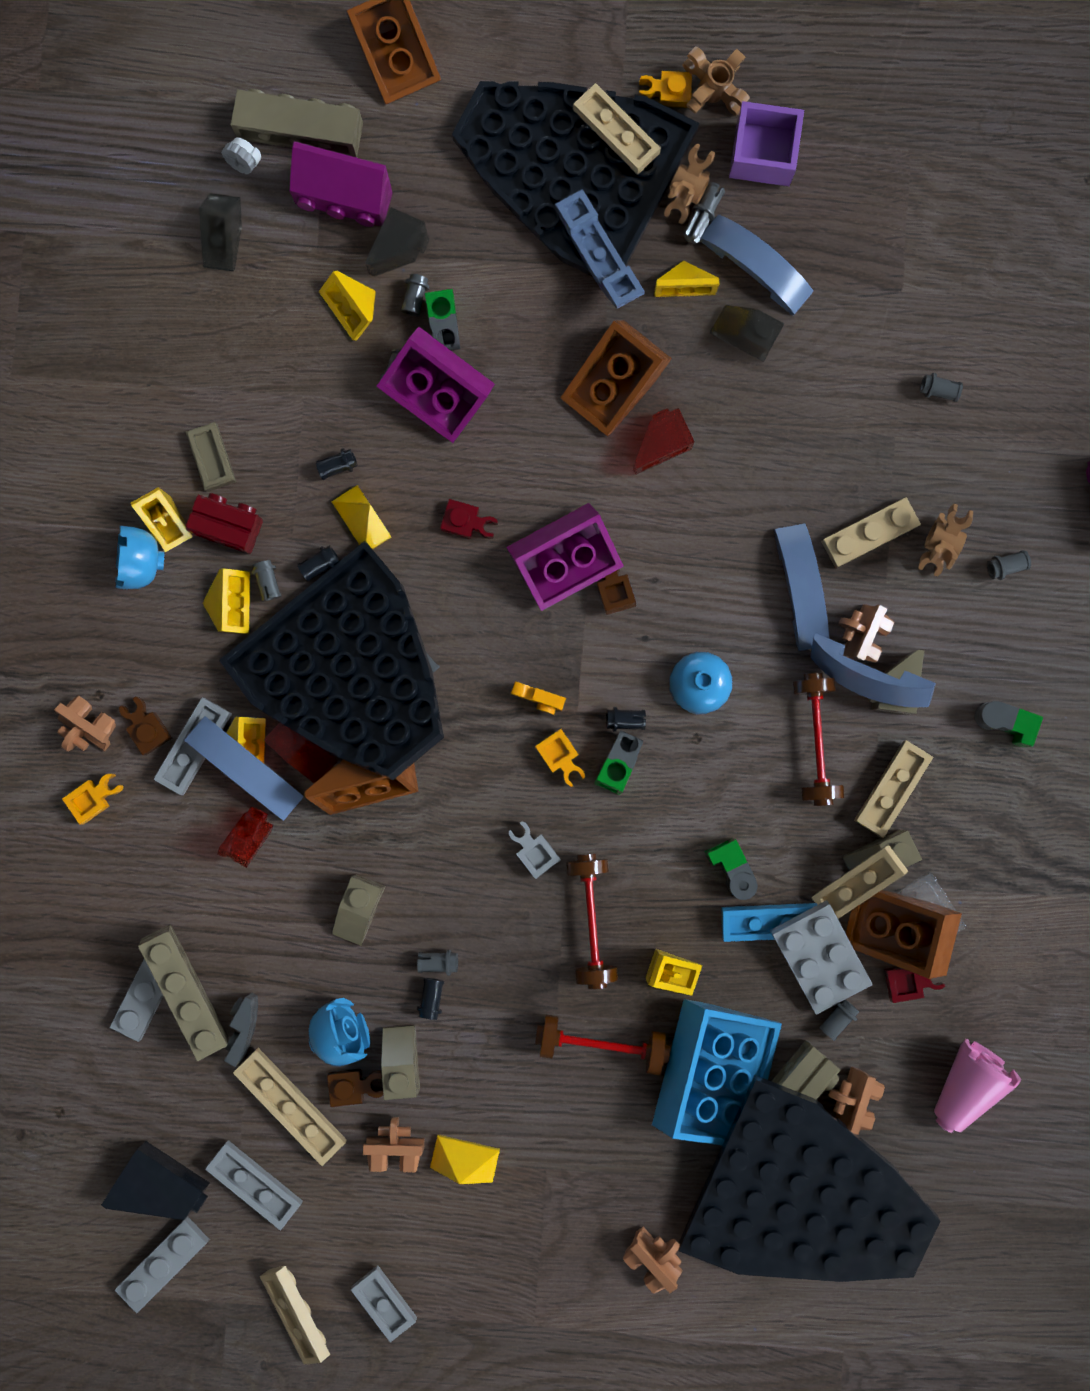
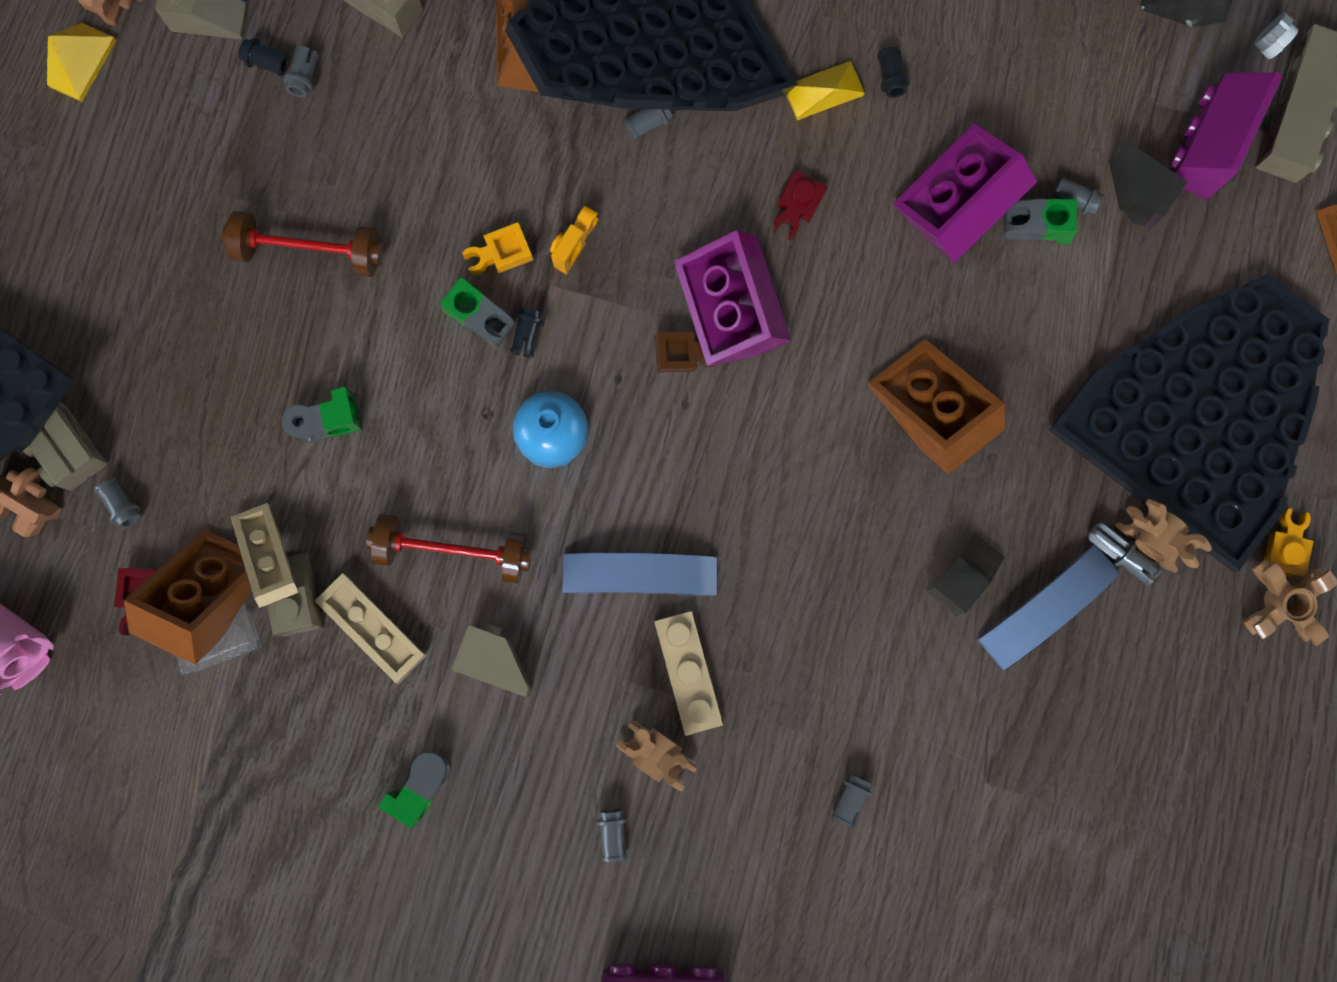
camera: 95 degrees right, 5 degrees down
(318, 563) = (784, 37): black pin -> none
(349, 302) = (1082, 124): yellow slope -> none
(536, 853) = (396, 201): light grey plate -> none
(597, 251) = (1097, 409): sand blue slope -> none
(616, 128) = (1246, 463): tan plate -> none
(654, 1053) = (185, 172): reddish brown axle -> none
(664, 439) = (849, 442): clear red slope -> none
(673, 973) = (221, 322): yellow slope -> none
(686, 281) = (1042, 513): yellow slope -> none
(711, 1070) = (102, 341): dark azure slope -> none
(755, 922) = (250, 447): dark azure plate -> none
(766, 143) = (1200, 644): medium lavender piece -> none
(821, 957) = (193, 495): light grey plate -> none
(862, 630) = (569, 630): nougat hips -> none
(869, 682) = (478, 655): sand blue slope -> none

